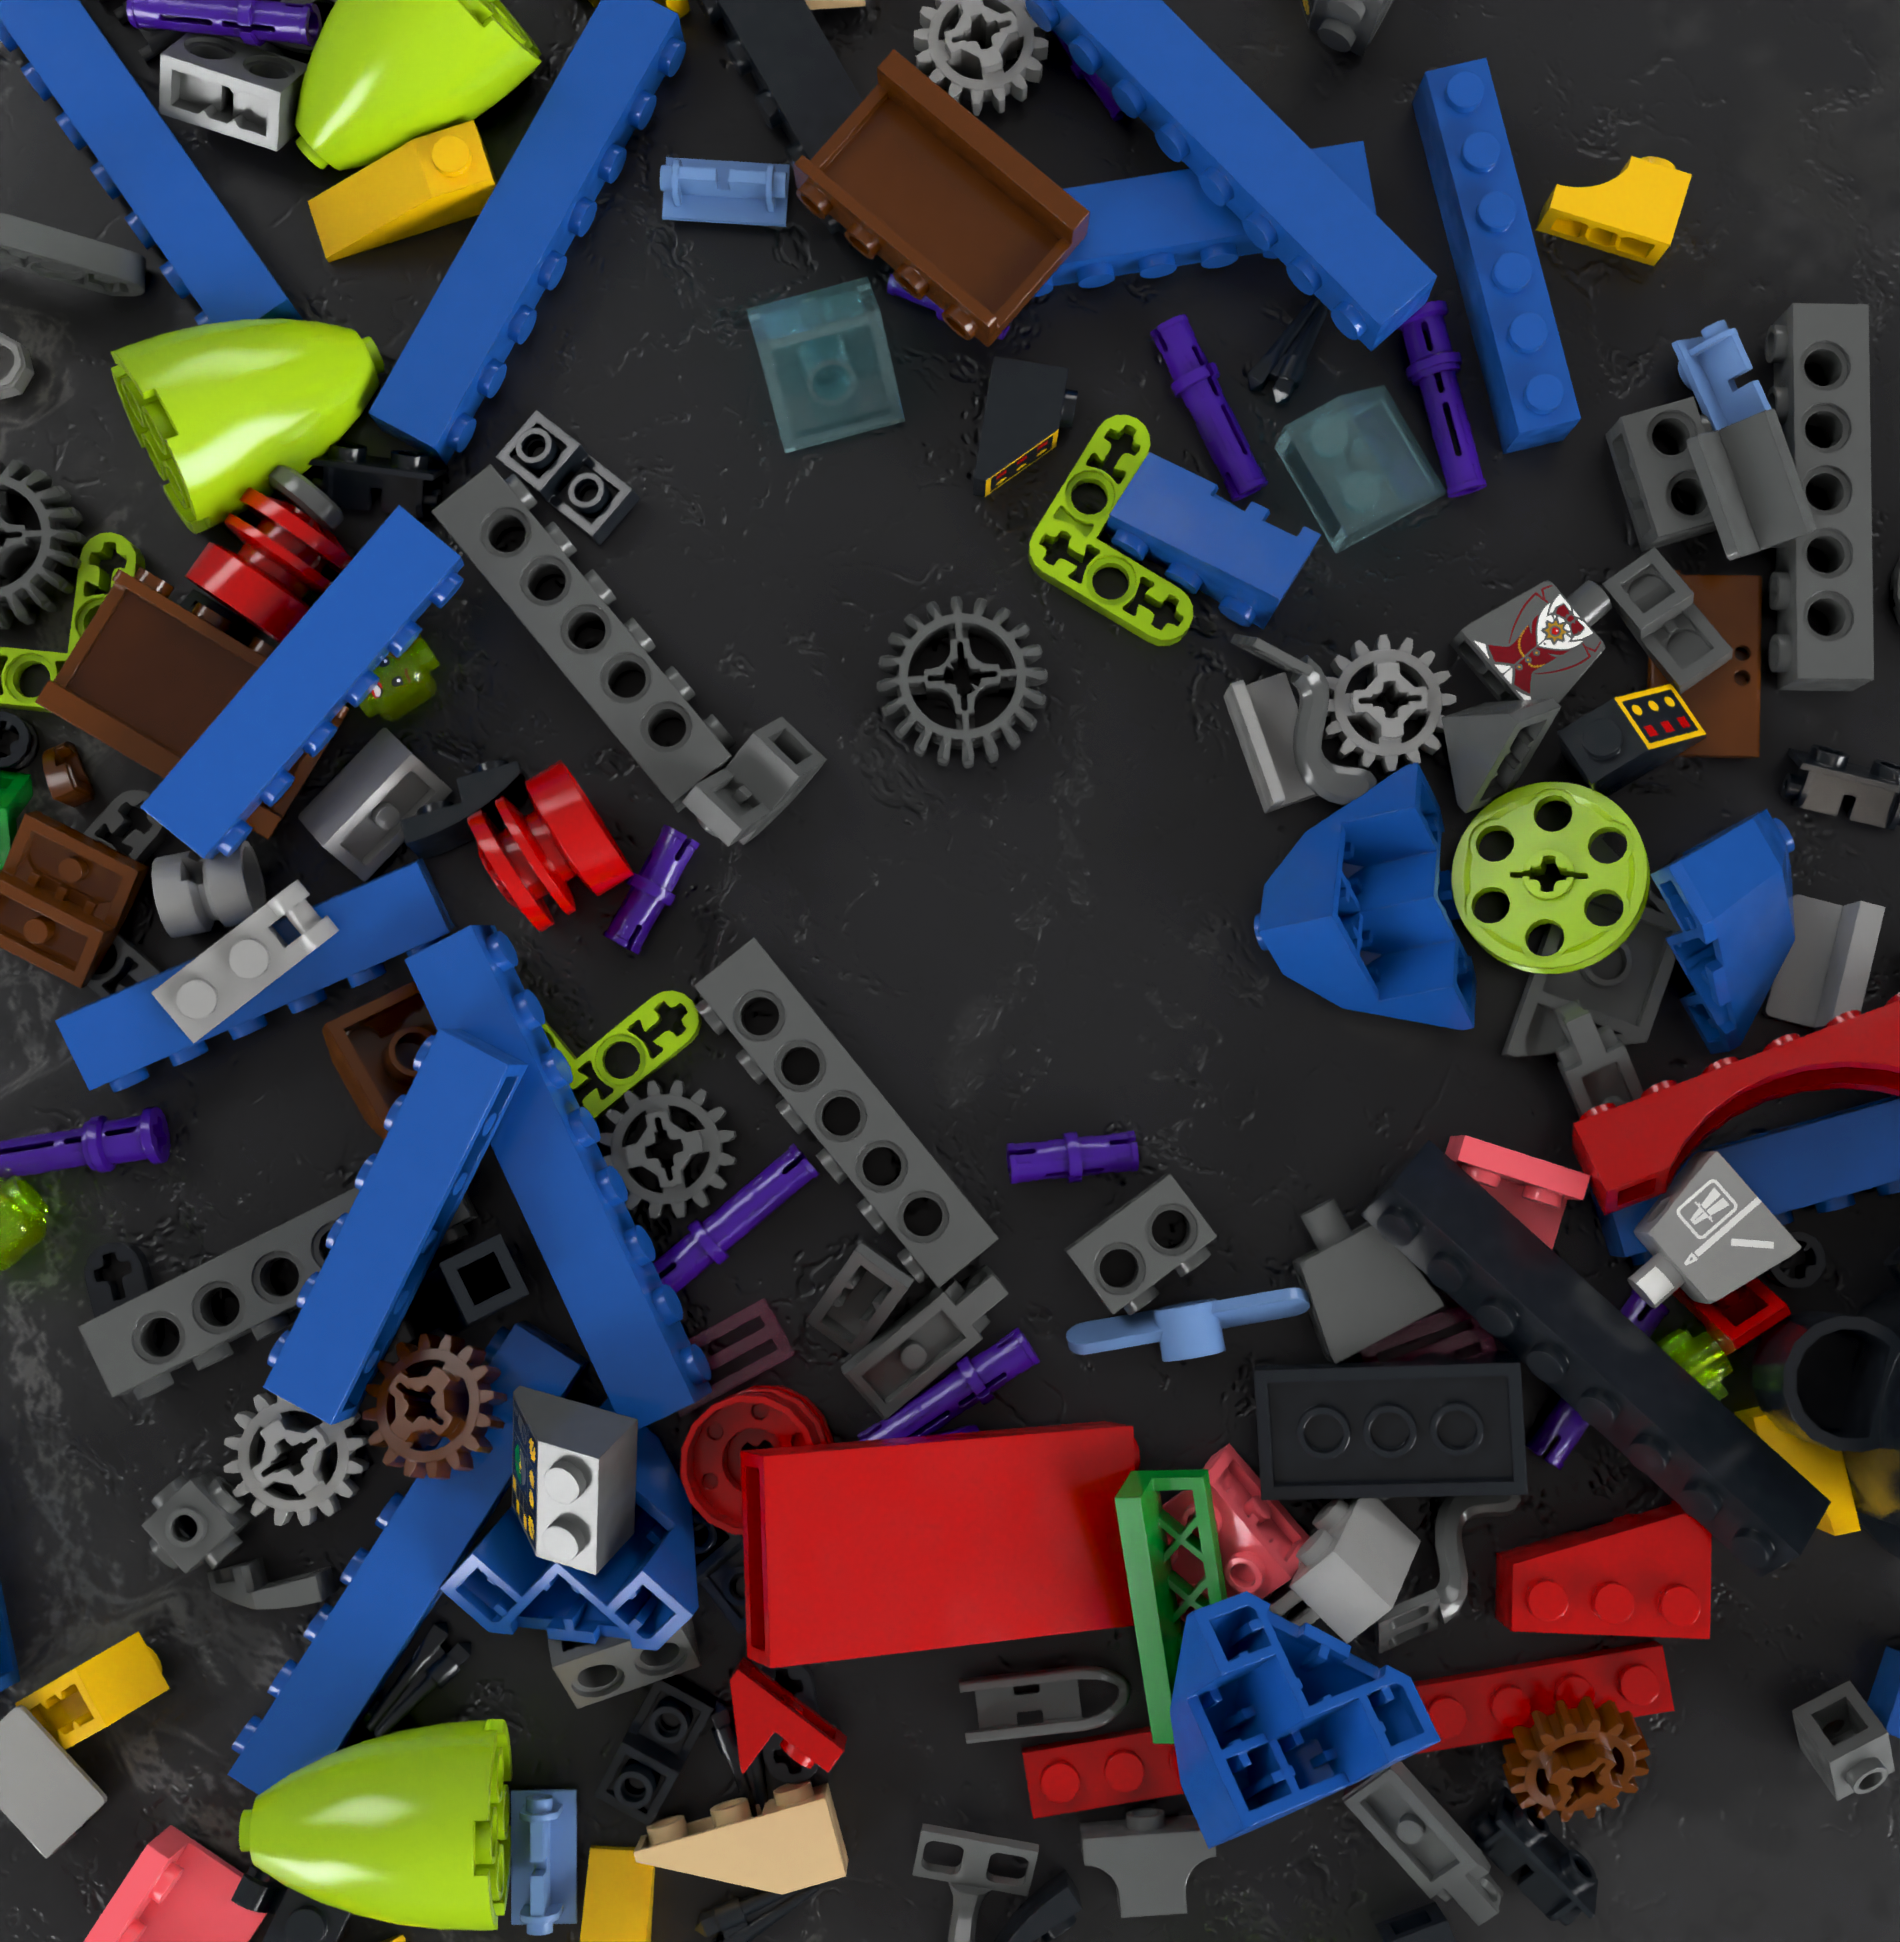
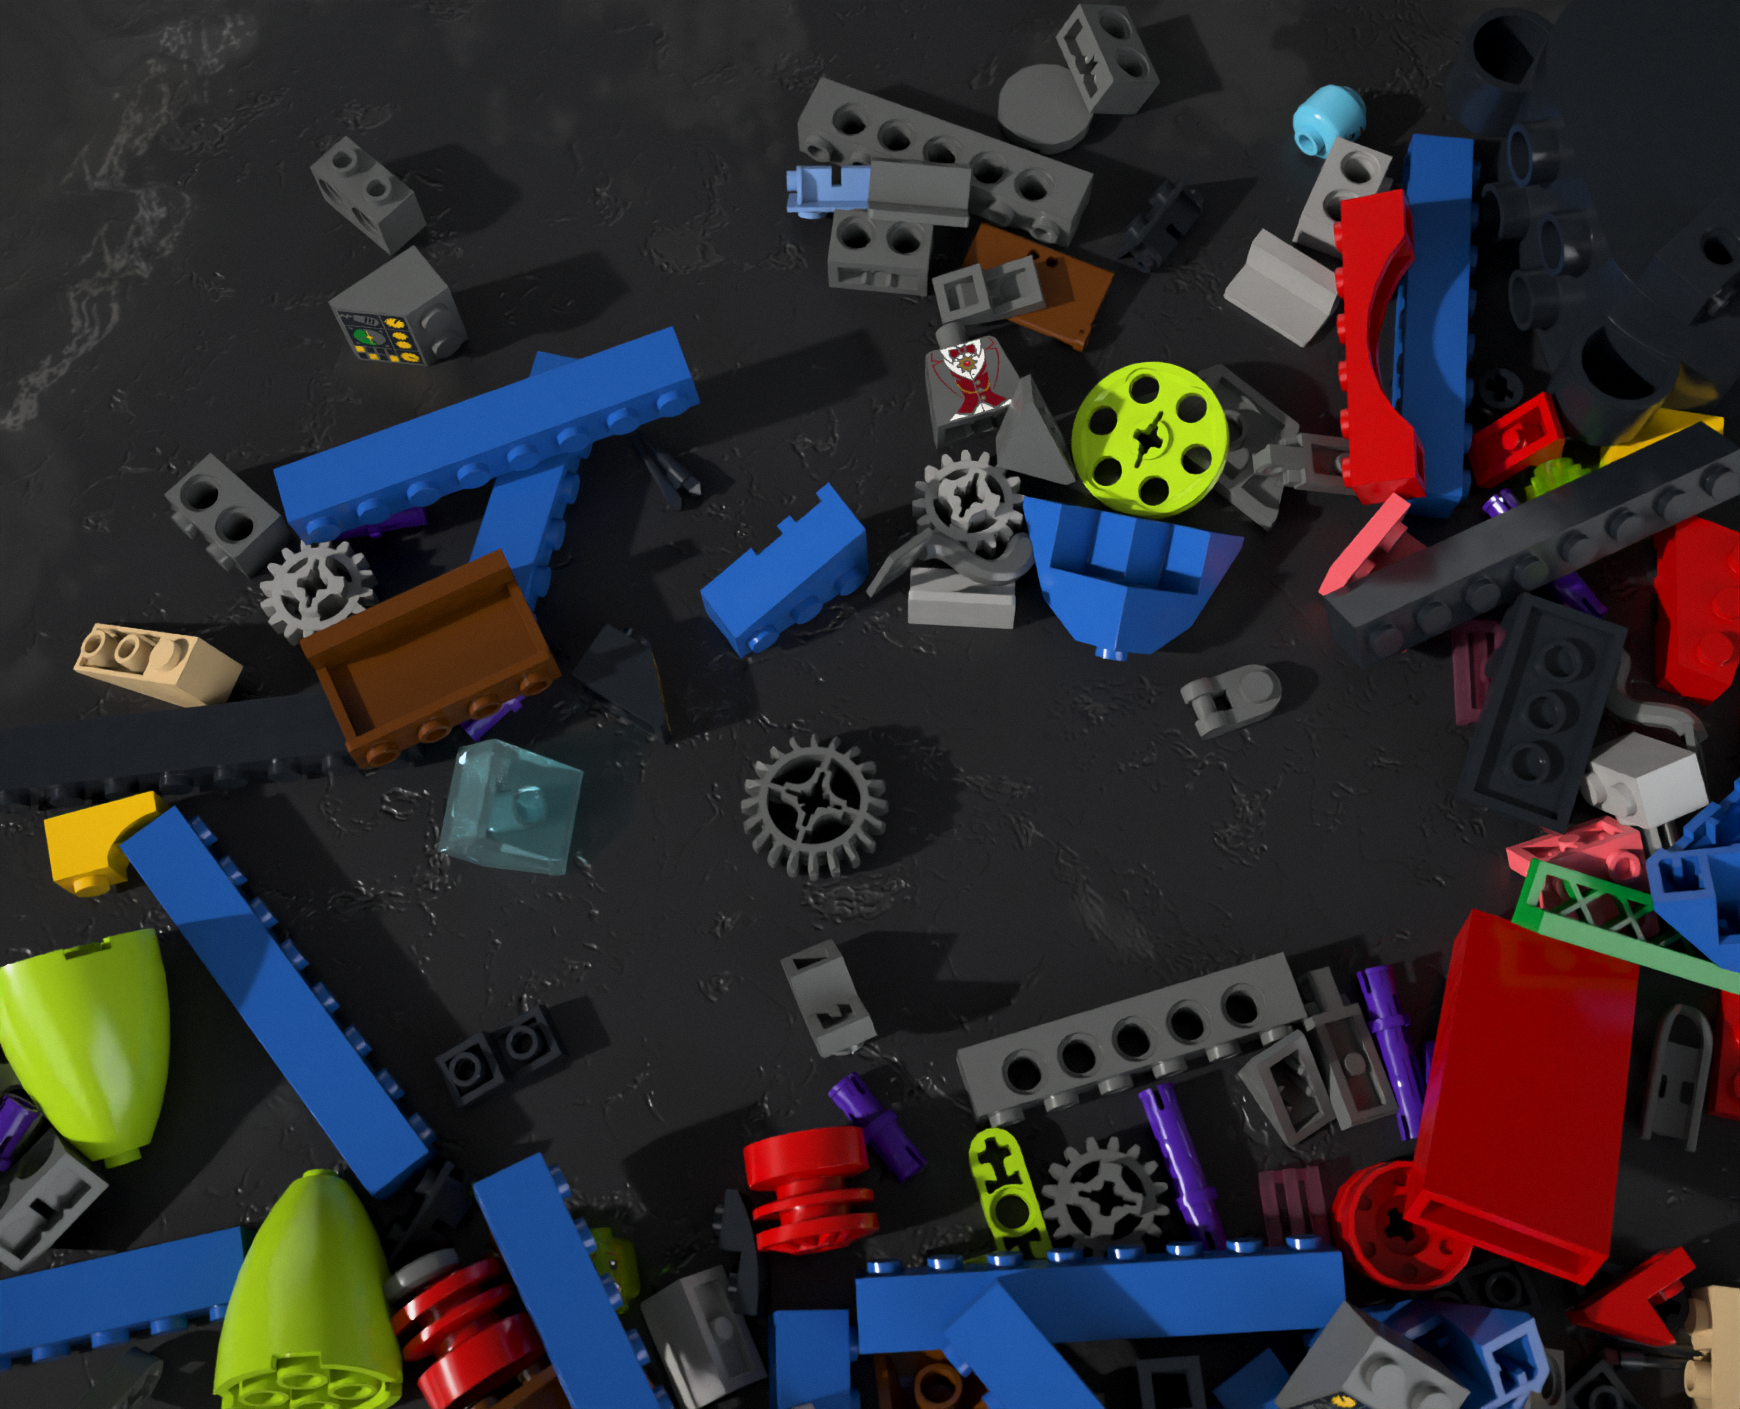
camera: 65 degrees left, 15 degrees down
(406, 192) = (199, 1092): yellow slope -> none
(474, 521) = (789, 1067): dark grey brick -> none
(725, 191) = (332, 834): medium blue hinge -> none
(1072, 1157) = (1232, 875): dark purple pin -> none
(1084, 531) = (739, 673): lime beam -> none
(1132, 1230) = (1309, 850): dark grey brick -> none
(1186, 1328) = (1402, 844): medium blue piece -> none
(1198, 387) = (679, 542): dark purple pin -> none
(1295, 1102) = (1249, 692): none -> dark grey plate
(1357, 465) = (776, 457): clear light blue slope -> none
(1357, 1284) = (1413, 700): dark grey torso -> none
(1426, 367) = (730, 376): dark purple pin -> none
(1495, 256) = (652, 296): blue brick -> none
(1624, 216) = (679, 206): yellow arch -> none
(1628, 738) = (1067, 351): black slope -> none
(1707, 1235) = (1469, 428): light grey torso -> none
(1734, 923) = (1217, 316): blue brick -> none

